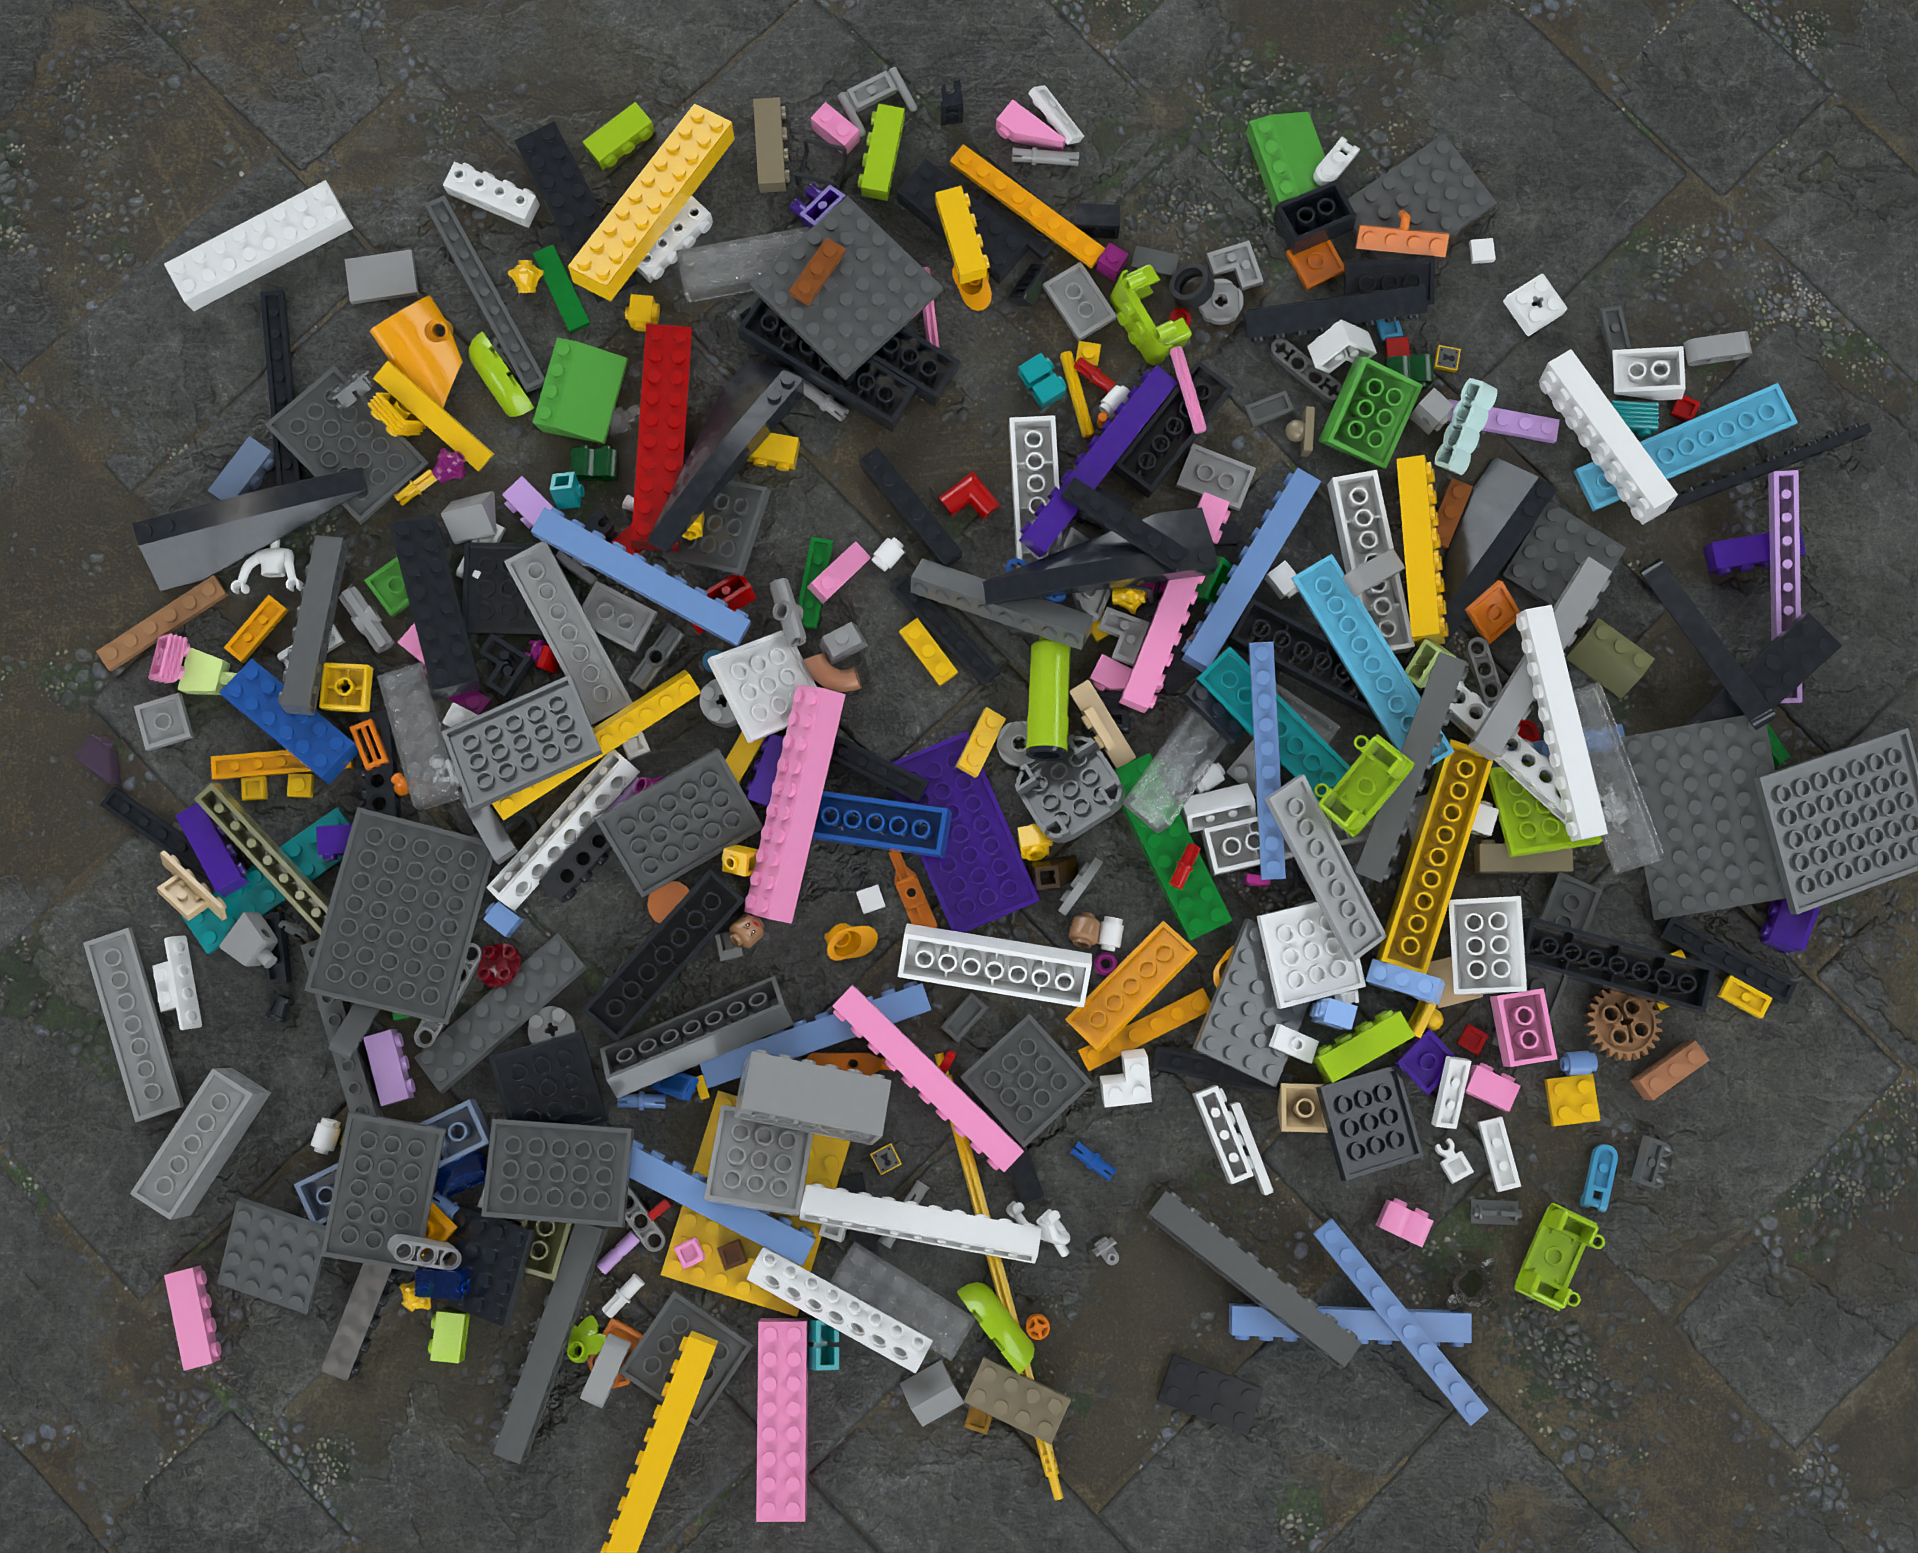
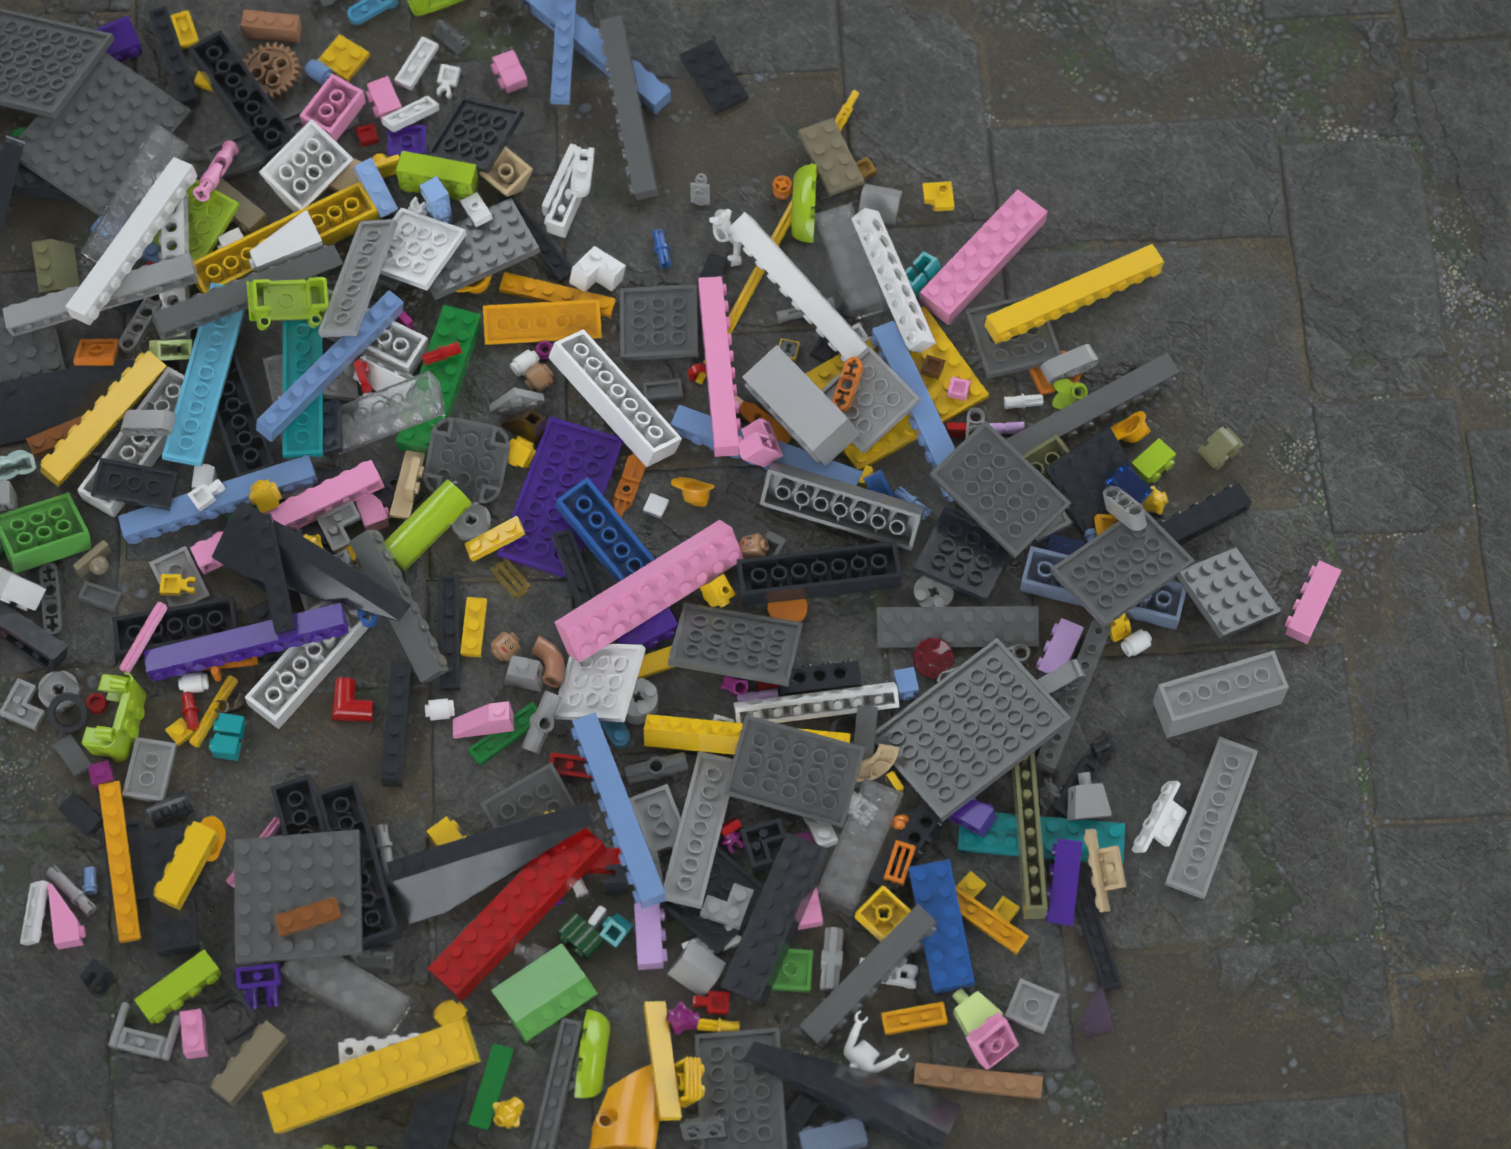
camera: 135 degrees left, 15 degrees down
(393, 1404) = (1220, 447): none -> olive brick
(436, 502) = (716, 1002): none -> red plate
(438, 818) = (893, 782): none -> yellow tile
(460, 823) = (878, 763): none -> tan tile
(481, 586) = (730, 912): none -> light grey plate
(499, 1350) = (1132, 428): none -> light orange piece
(593, 490) = (597, 917): none -> white tile
(775, 1143) = (857, 372): none -> orange beam
(815, 1028) = (759, 443): none -> bright pink brick
(876, 1448) = (939, 195): none -> yellow brick
(881, 654) = (505, 646): none -> medium nougat head
(917, 719) = (500, 566): none -> clear yellow tile
(1038, 176) = (90, 881): none -> medium blue pin
(1065, 402) = (237, 704): none -> dark brown piece
(1208, 597) = (265, 495): none -> yellow brick
(1212, 462) = (174, 583): none -> yellow plate
(1230, 1166) = (582, 171): none -> white plate
(1239, 787) = (362, 370): none -> red plate
(1262, 554) = (204, 496): none -> white plate
(1332, 515) = (135, 484): none -> black tile
(1423, 847) = (287, 243): none -> white slope
(1559, 853) = (217, 168): none -> bright pink piece

